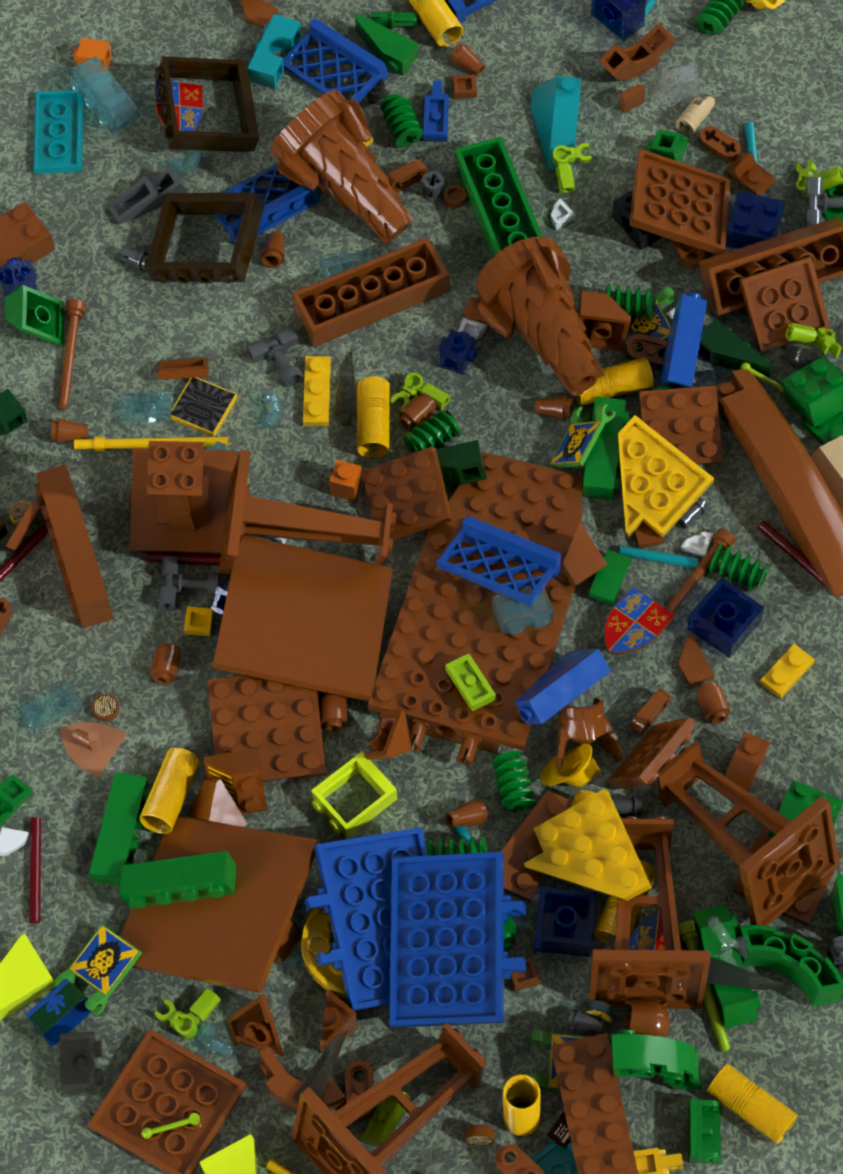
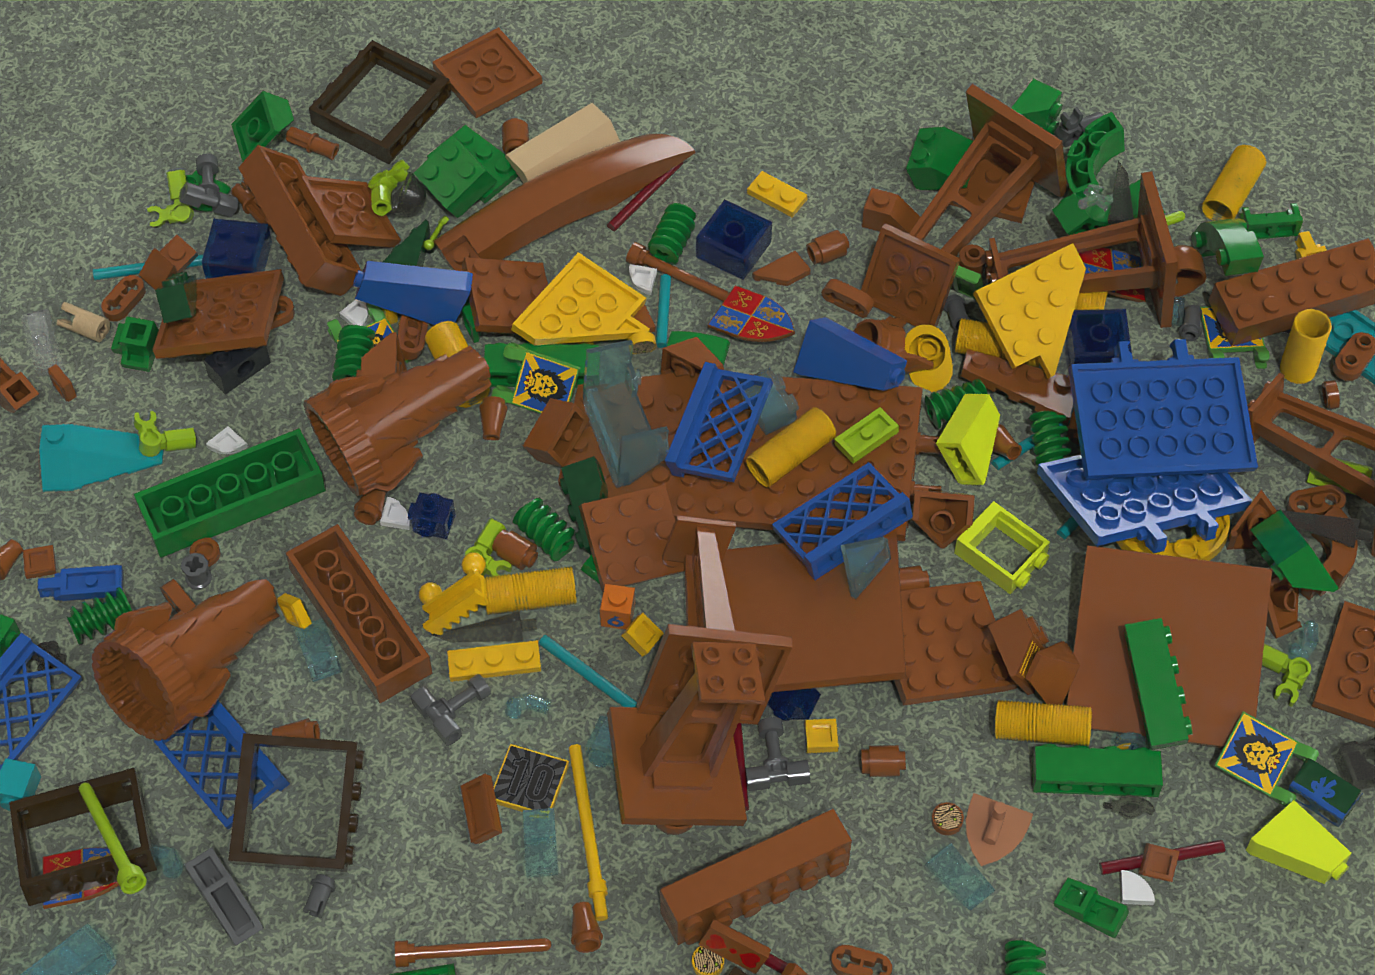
camera: 100 degrees left, 5 degrees down
(27, 862) = (1159, 862): none -> dark orange tile
(146, 115) = (130, 876): none -> lime piece
(281, 1028) = (1290, 554): none -> green slope
(293, 458) = (587, 672): none -> teal bar
(318, 496) = (642, 634): none -> yellow plate
(332, 652) = (864, 561): none -> clear light blue slope
(365, 653) = (877, 523): none -> blue fence
(367, 361) = (457, 599): none -> yellow gear
(381, 247) = (294, 611): none -> yellow tile
(466, 779) = (970, 438): none -> neon yellow slope
(468, 620) = (790, 446): none -> yellow piece
(515, 488) = (618, 416): none -> clear light blue windscreen
(525, 448) = (556, 432): none -> dark orange brick
(619, 530) = (643, 342): none -> tile
(646, 805) = (967, 281): none -> bright green tile
(680, 817) = (973, 258): none -> dark orange brick
(694, 168) = (177, 297): none -> dark green slope

